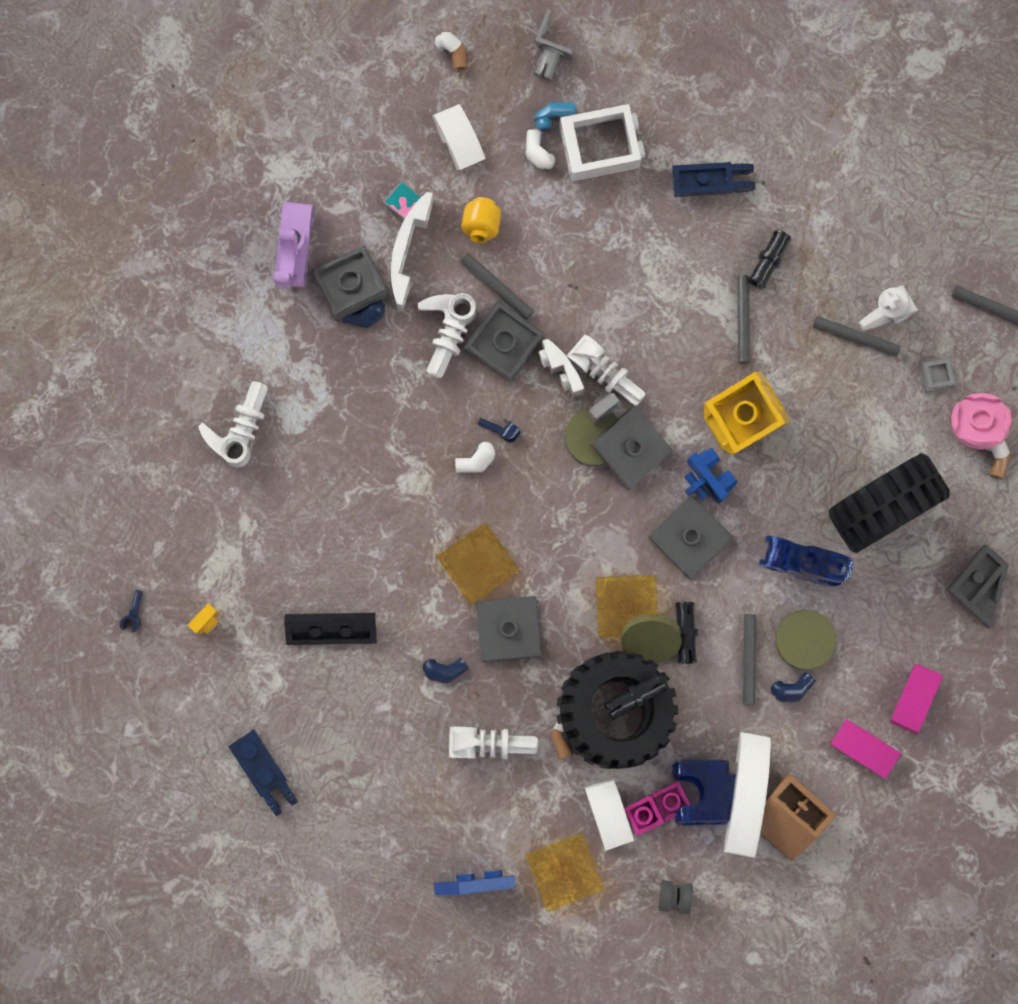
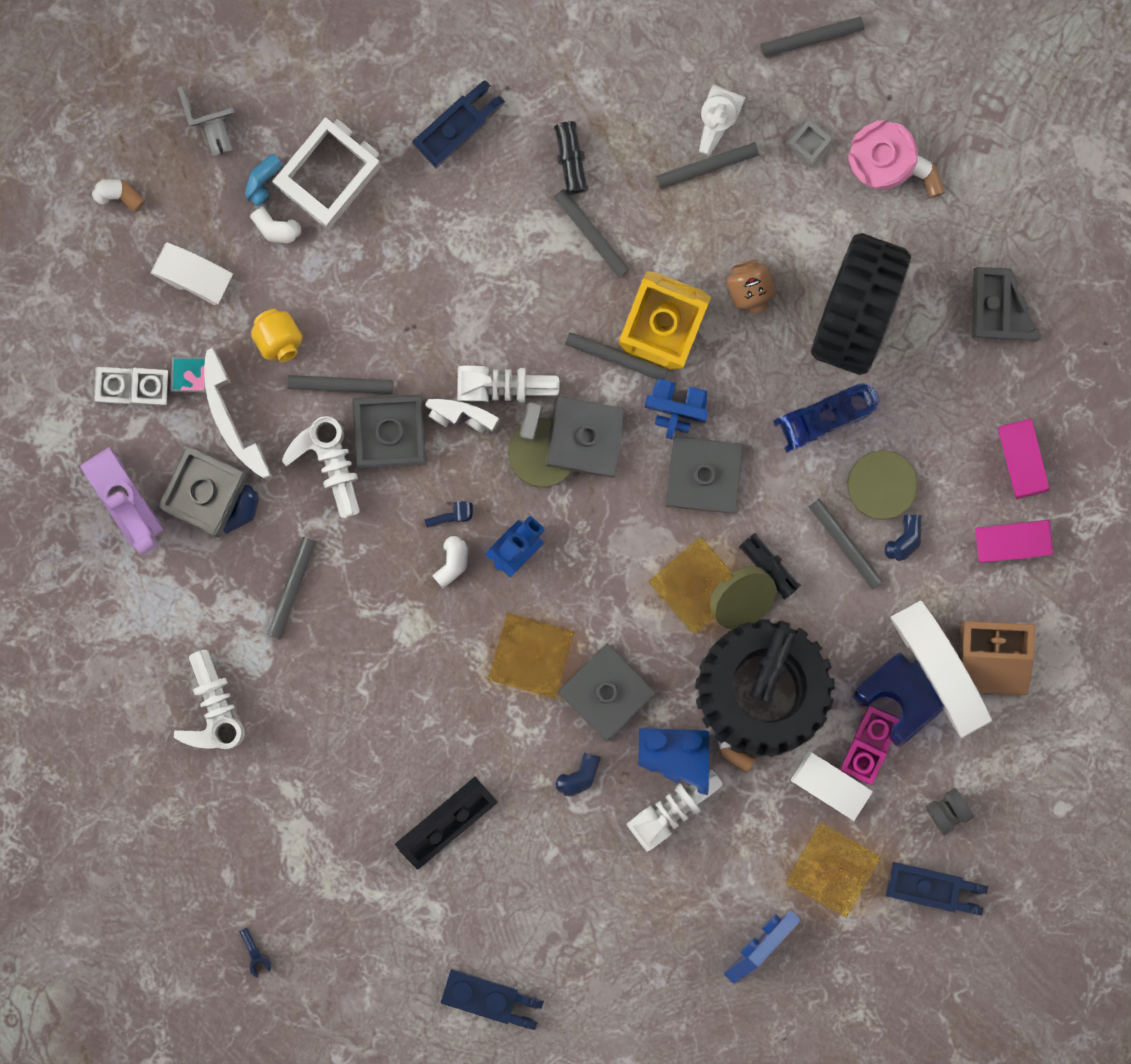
camera: 30 degrees left, 5 degrees up
(205, 620) = (326, 908): yellow plate -> none
(356, 392) = (291, 588): none -> dark grey bar
(359, 178) = (131, 386): none -> white slope
(521, 708) = (676, 755): none -> blue wing
(527, 482) = (516, 546): none -> blue hips
(621, 939) = (931, 888): none -> dark blue hinge
(694, 412) = (615, 356): none -> dark grey bar
(823, 437) = (751, 286): none -> medium nougat head

